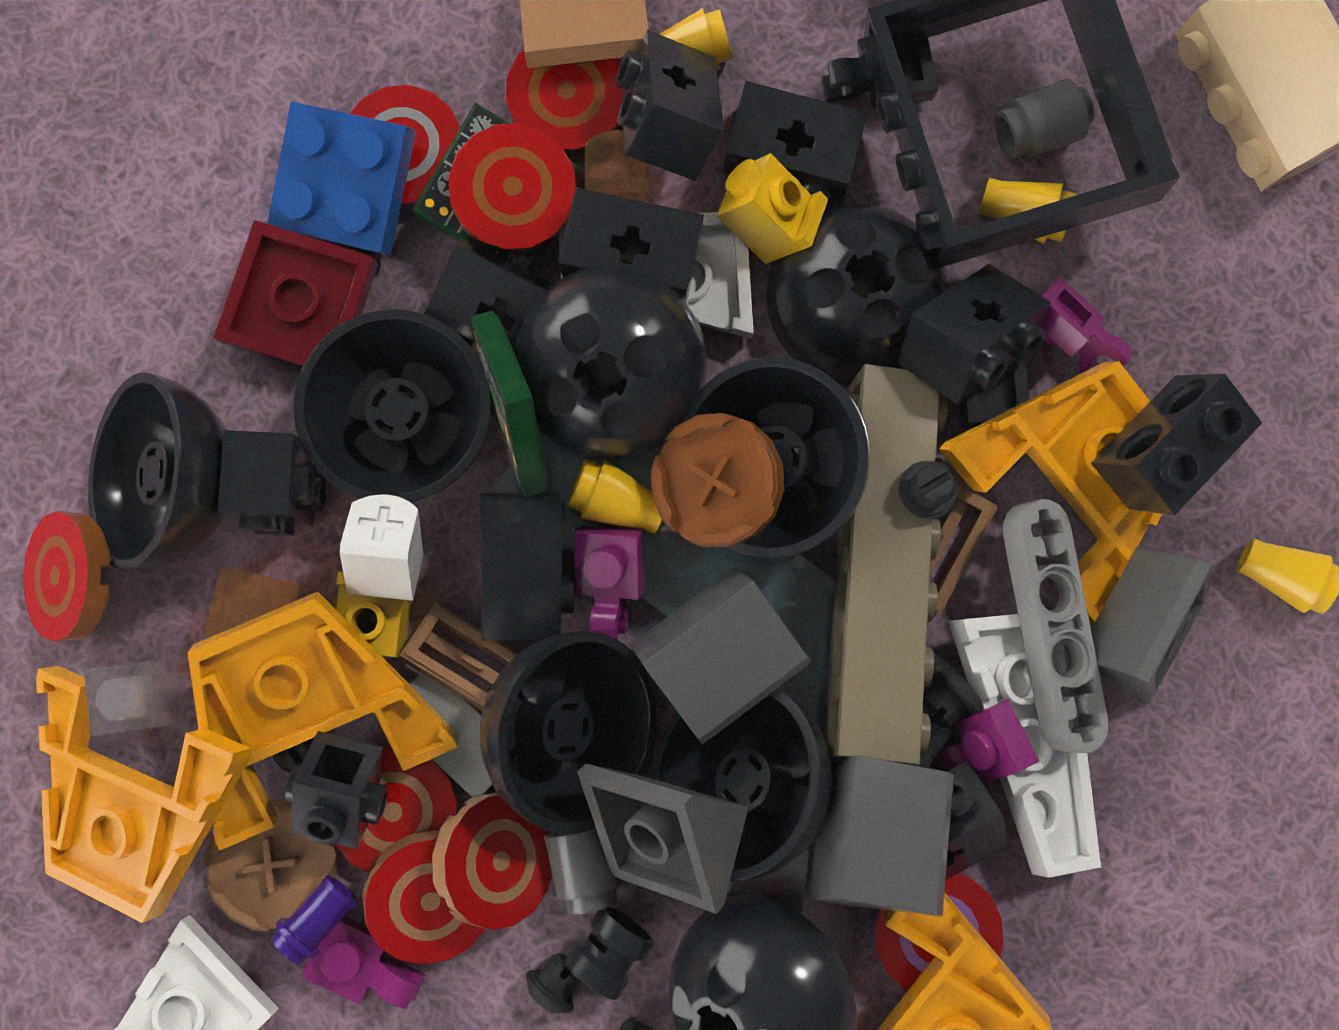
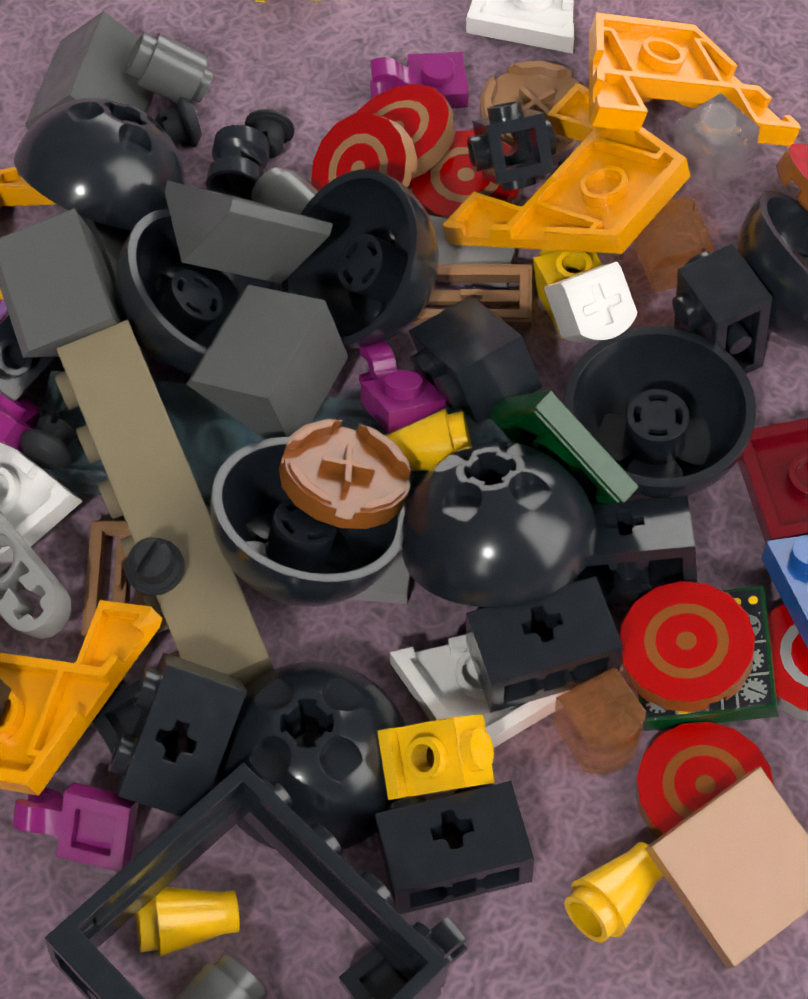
camera: 160 degrees right, 25 degrees down
(313, 920) = (478, 67): dark purple pin -> none
(669, 105) = (591, 825): black brick -> none

